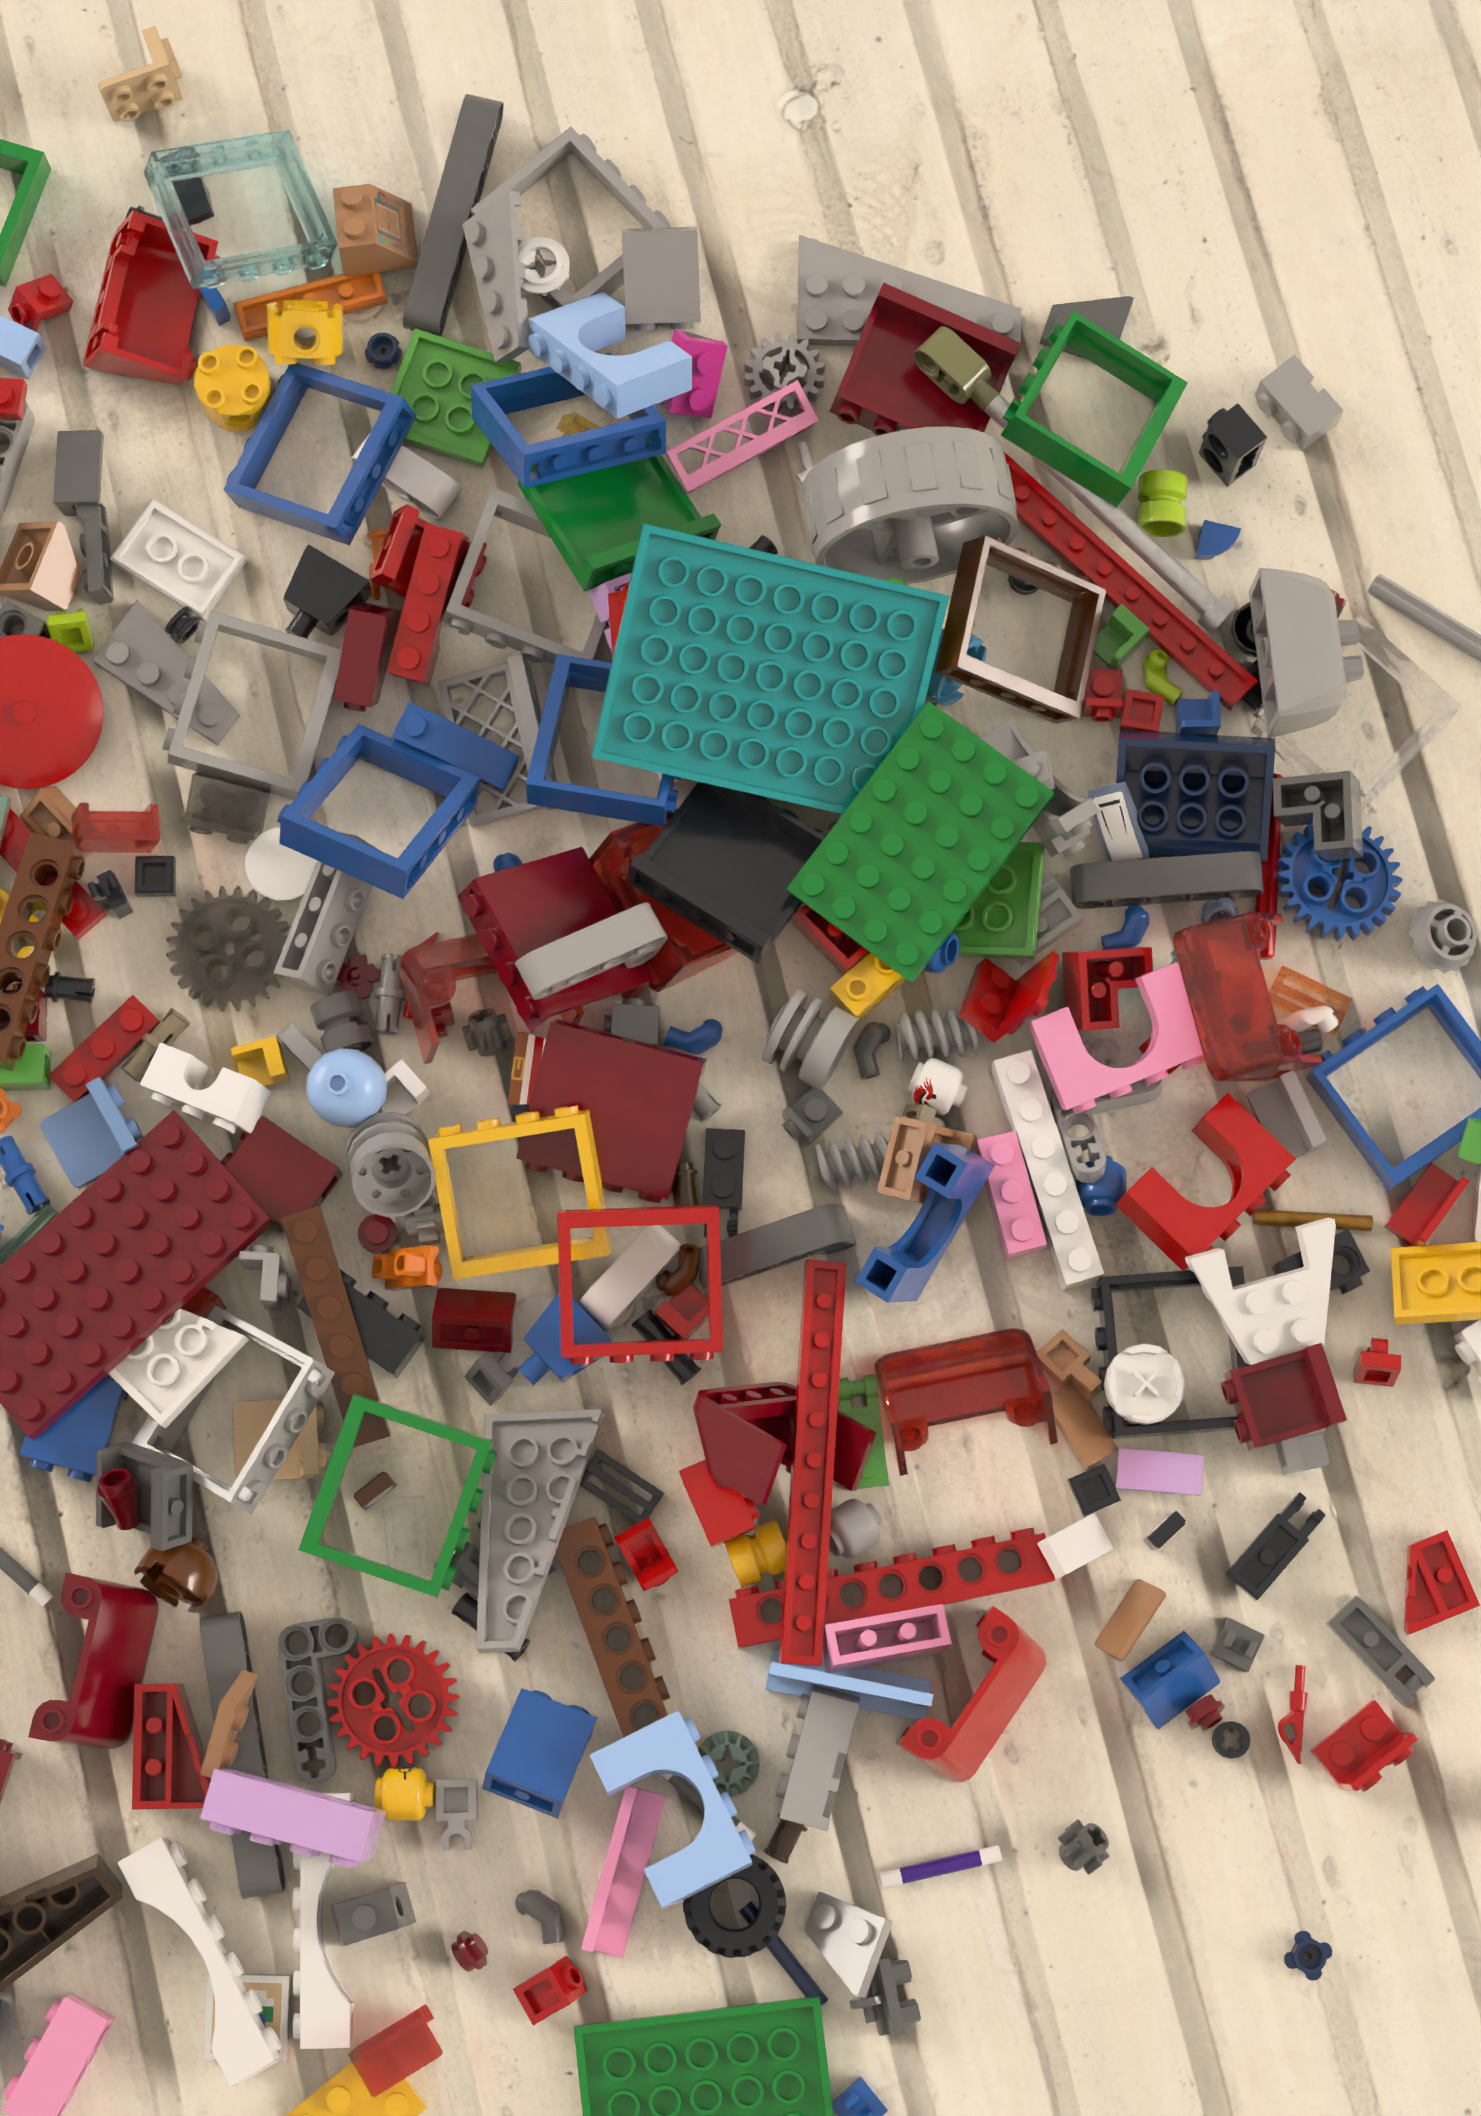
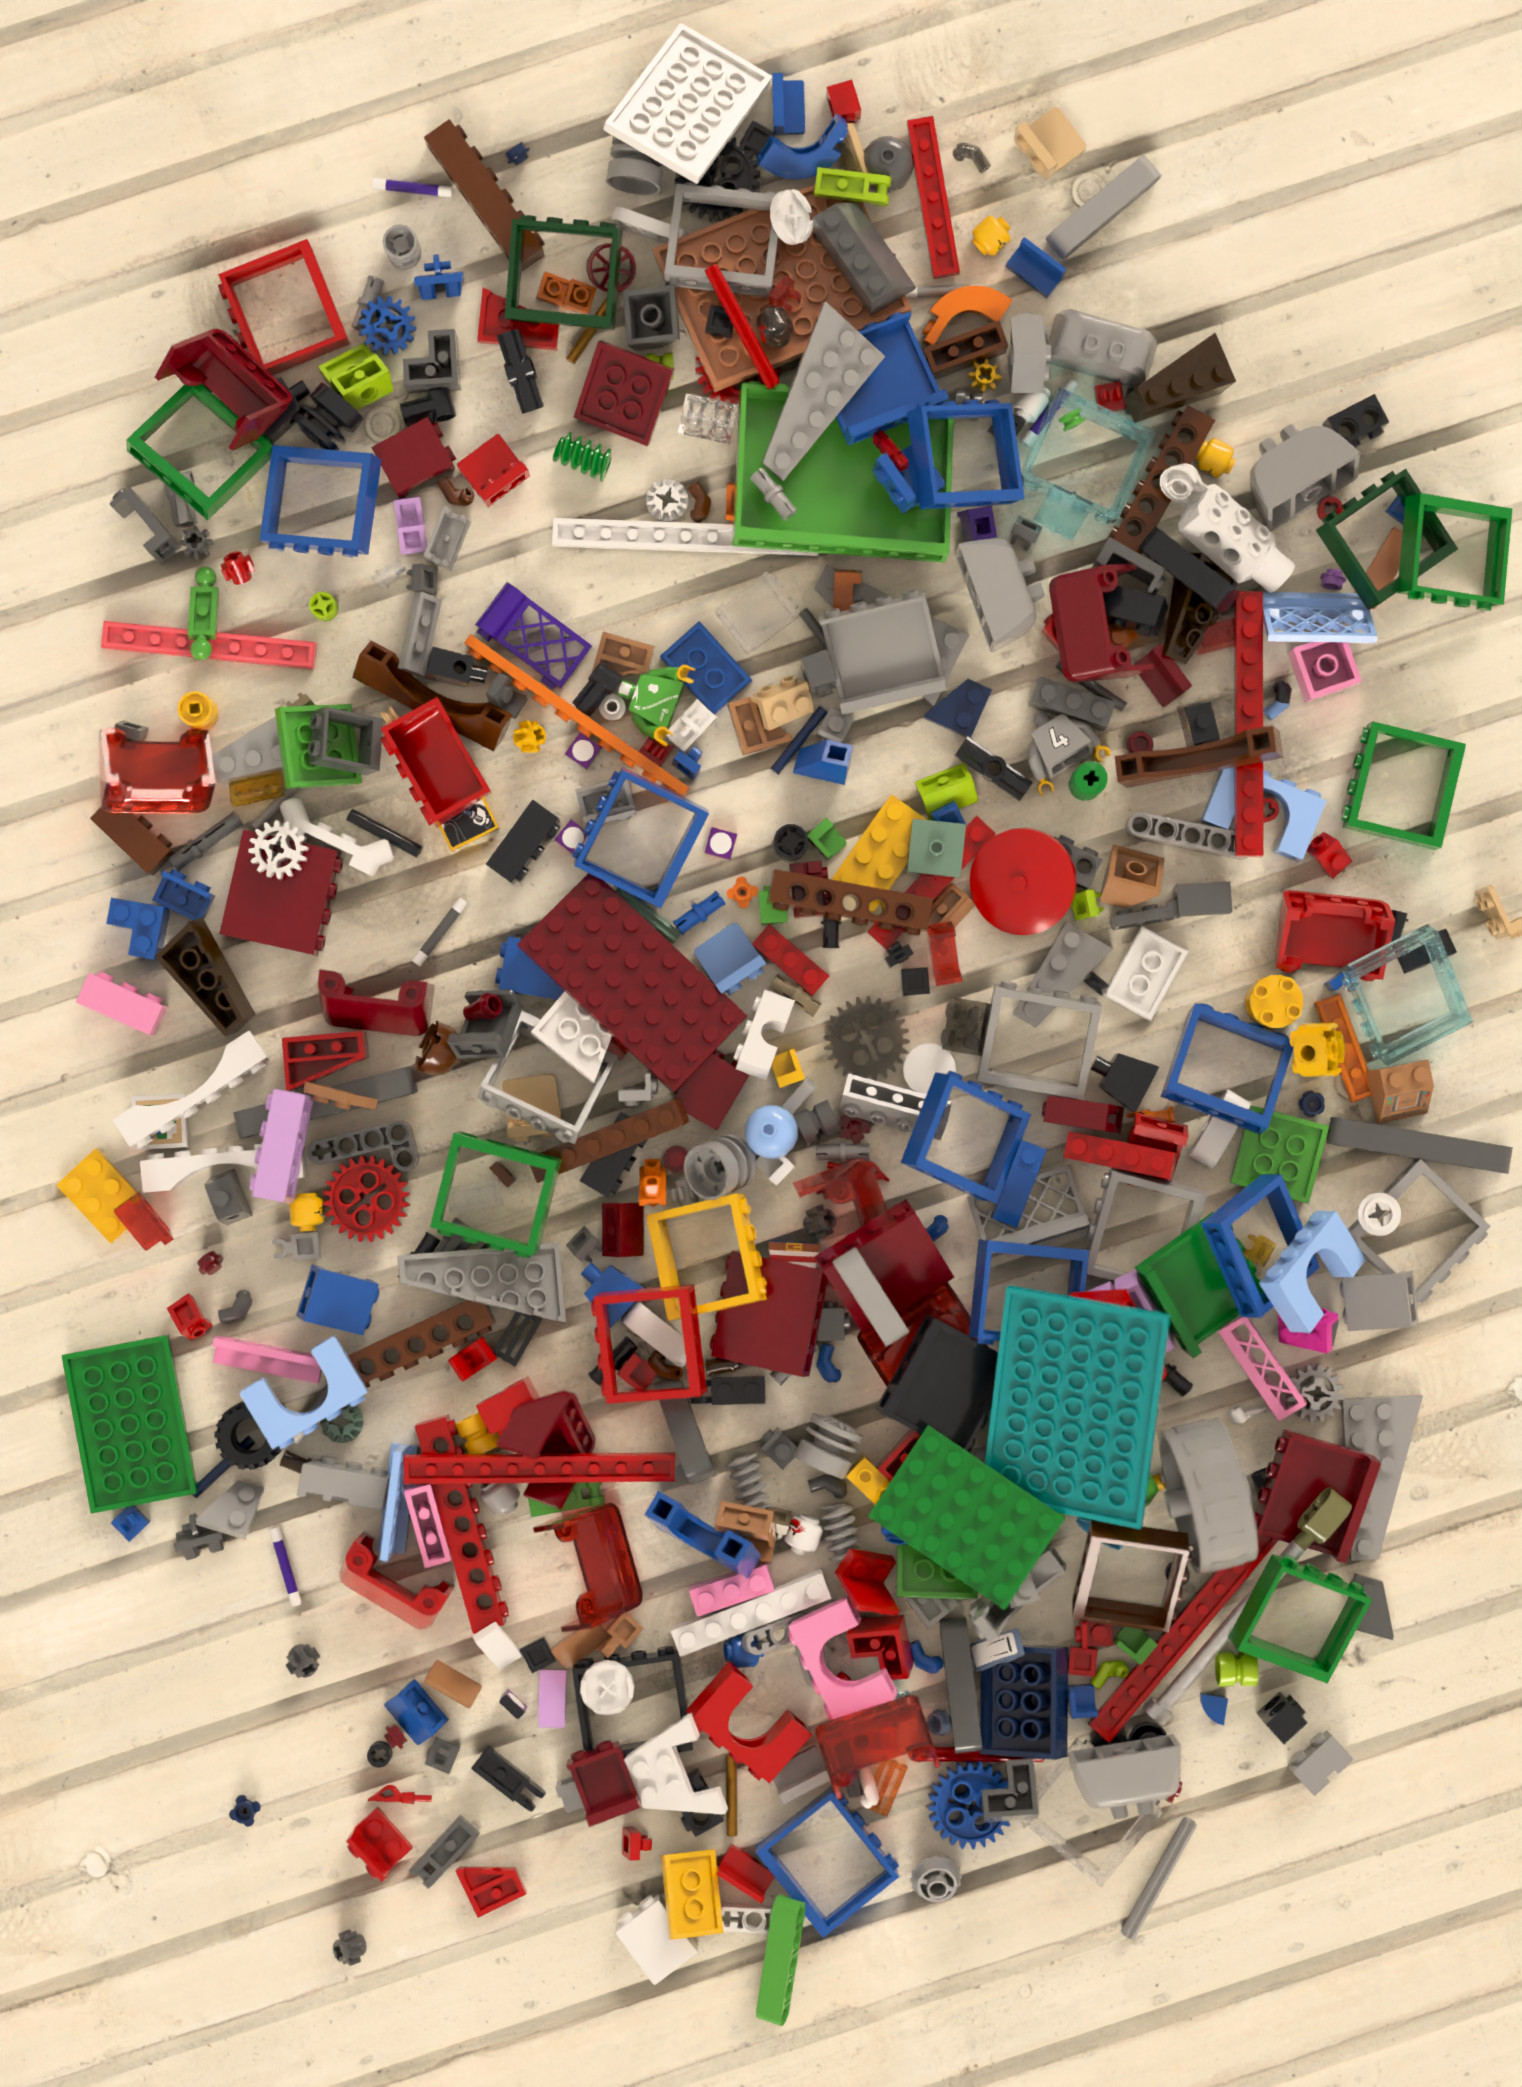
camera: 85 degrees right, 10 degrees up
(493, 251) = (1379, 1182): light grey wing -> none

